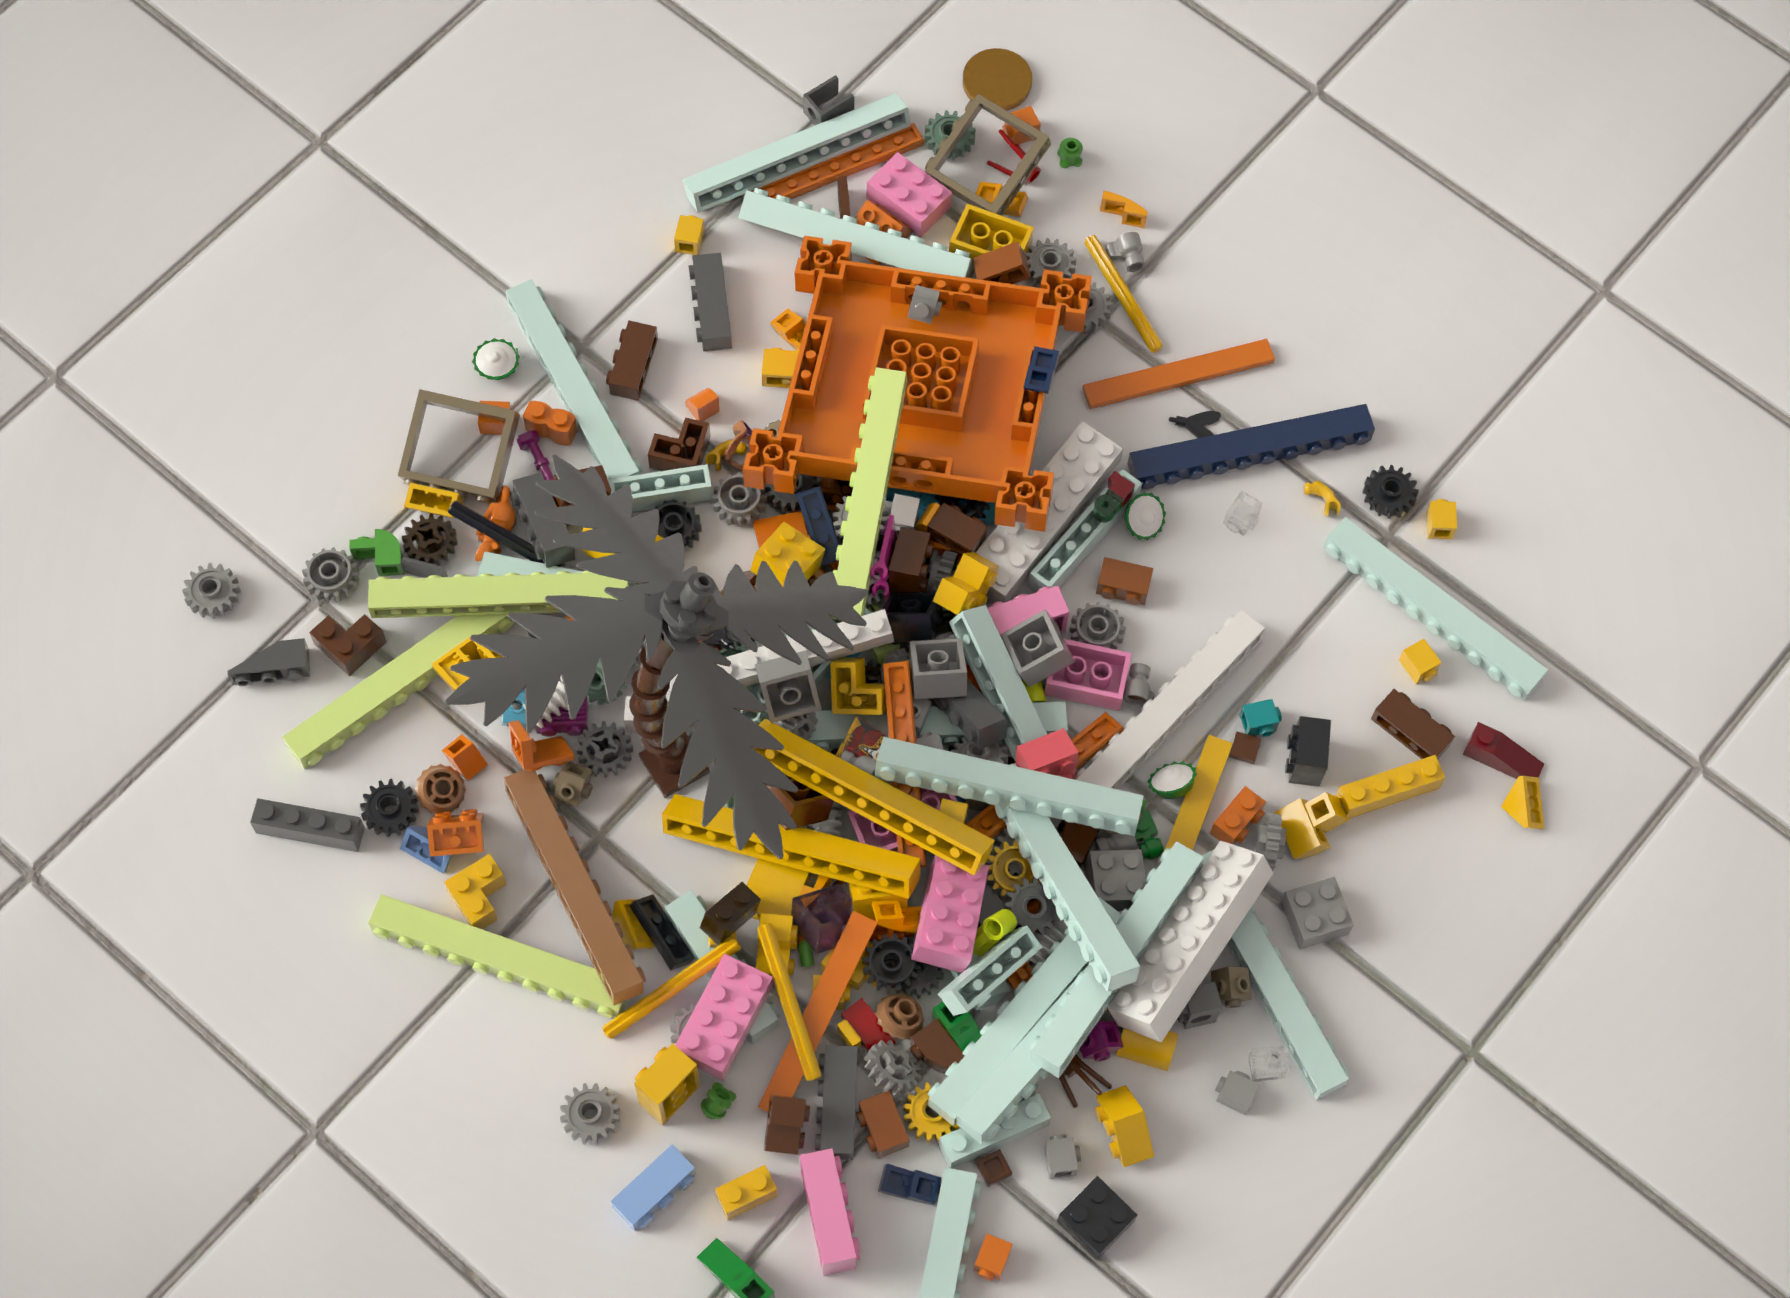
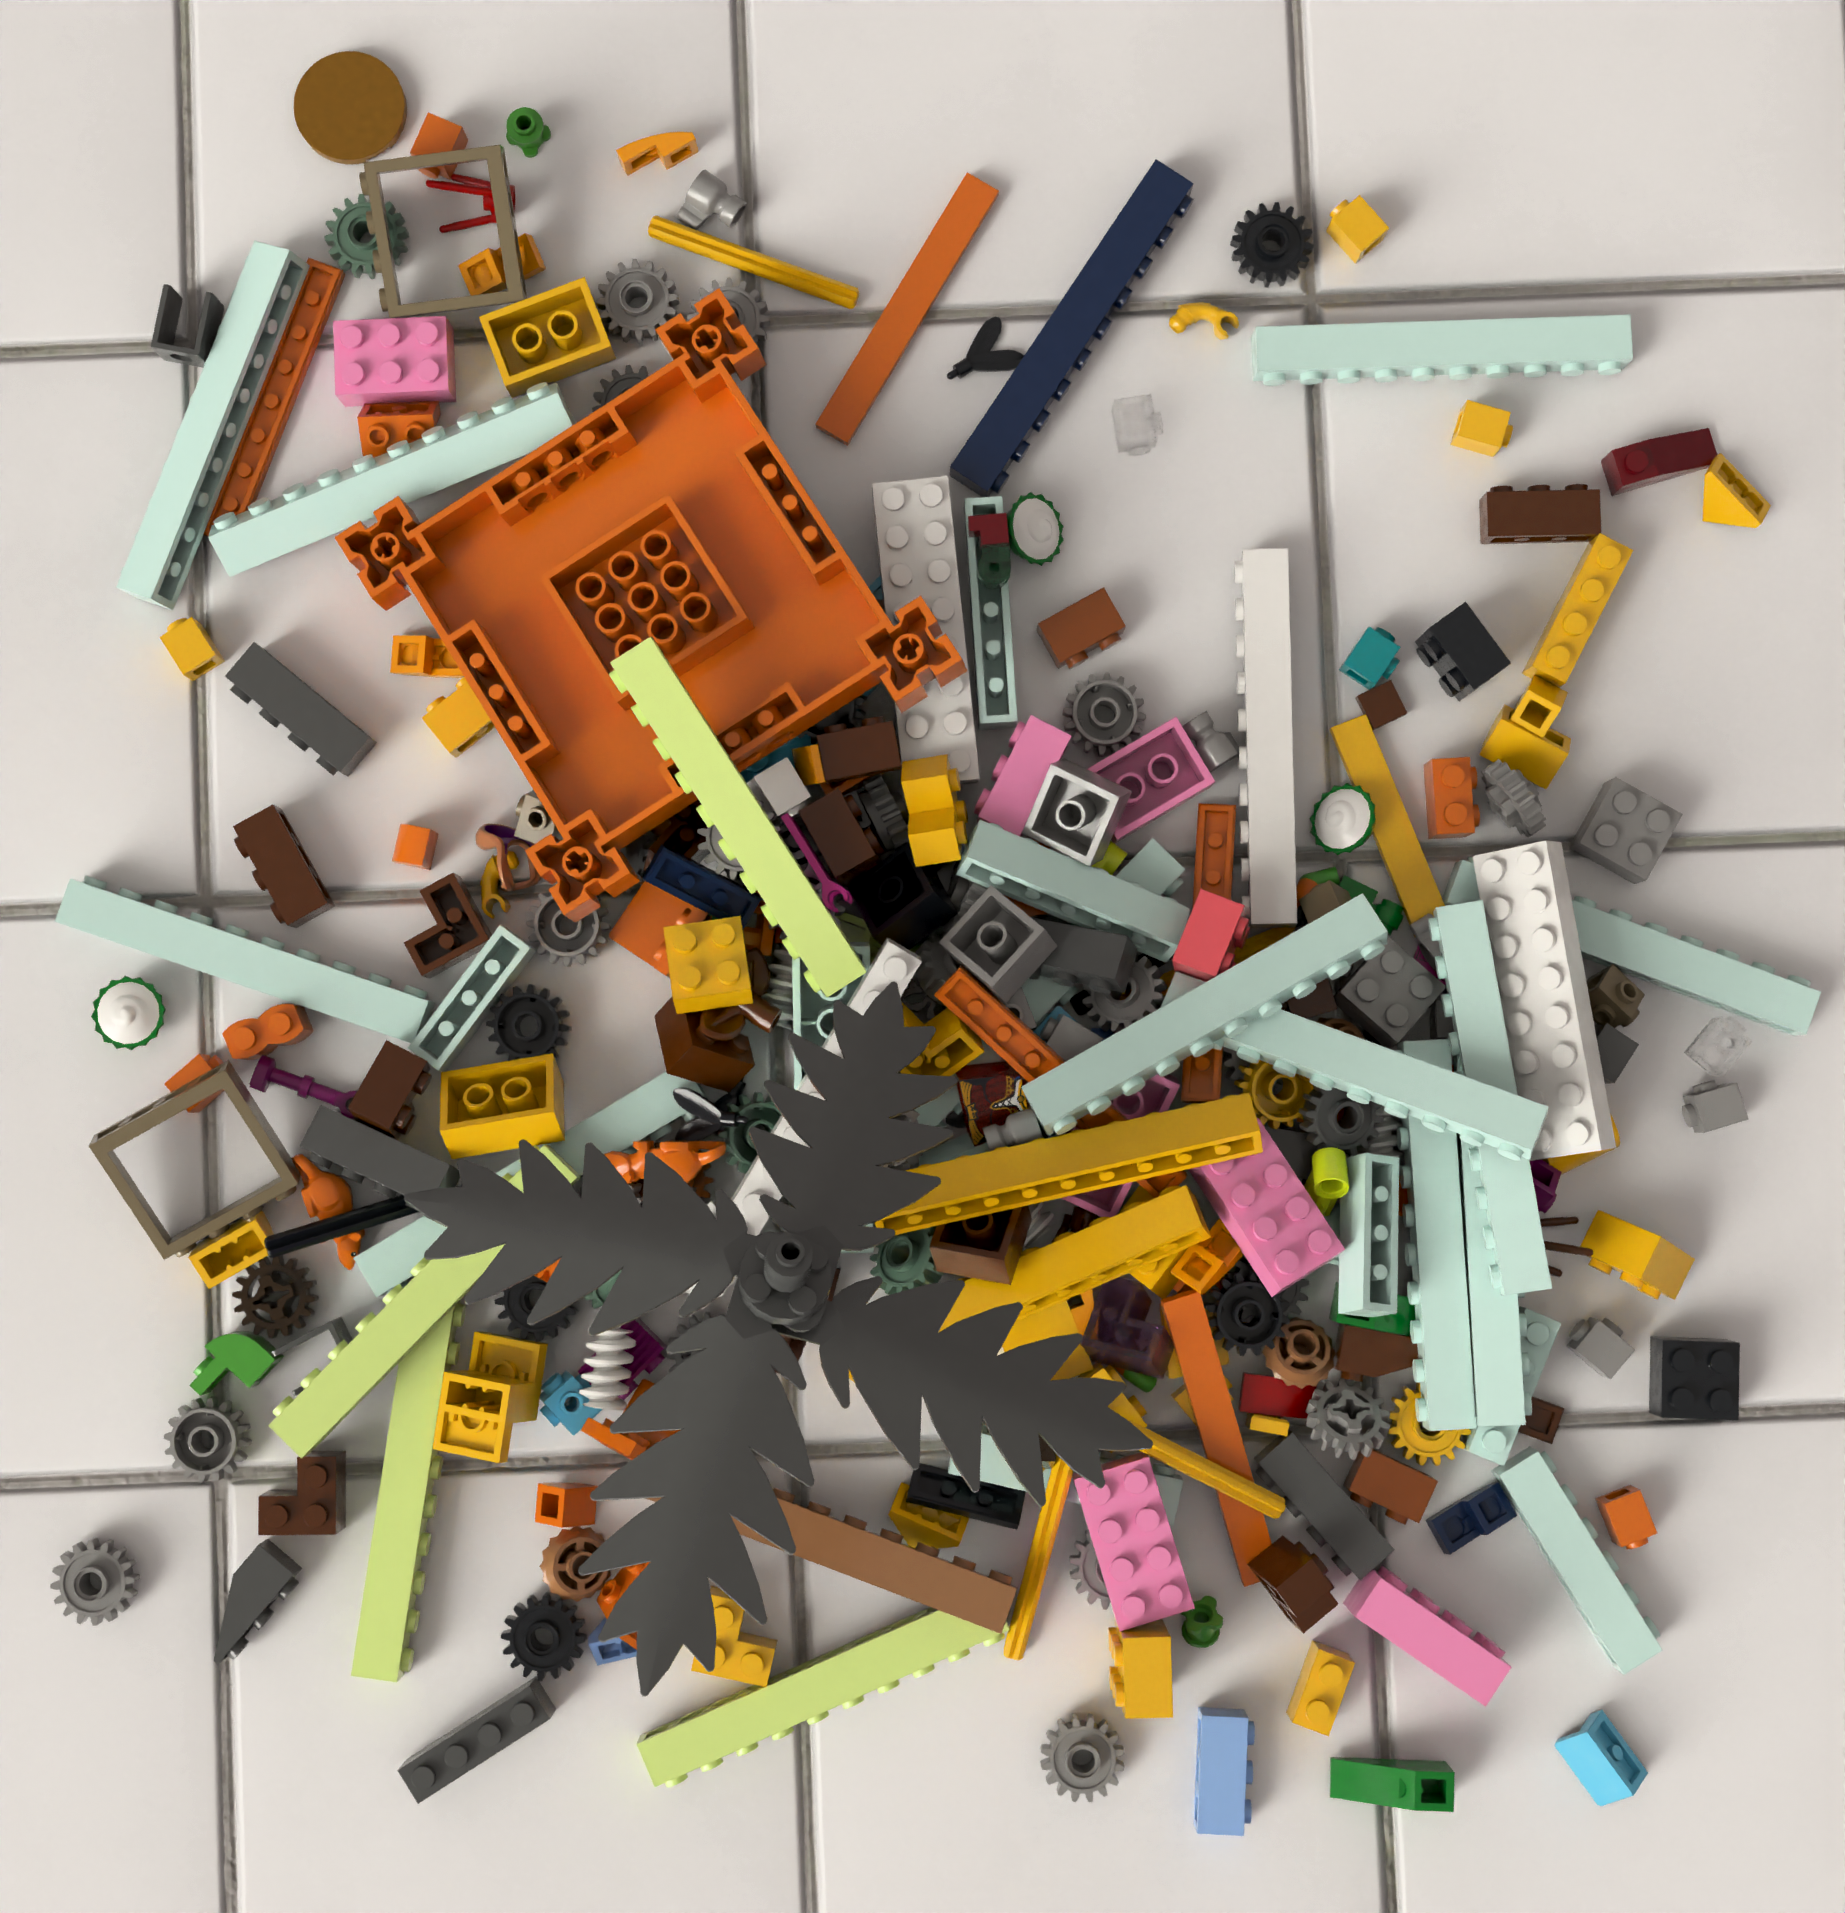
camera: 40 degrees left, 20 degrees up
(843, 197) = (326, 438): reddish brown tile -> none
(924, 304) = (563, 504): light grey brick -> none
(954, 809) = (1166, 1093): yellow tile -> none
(1003, 265) = (600, 367): dark orange brick -> none
(1041, 370) = (783, 473): dark blue slope -> none

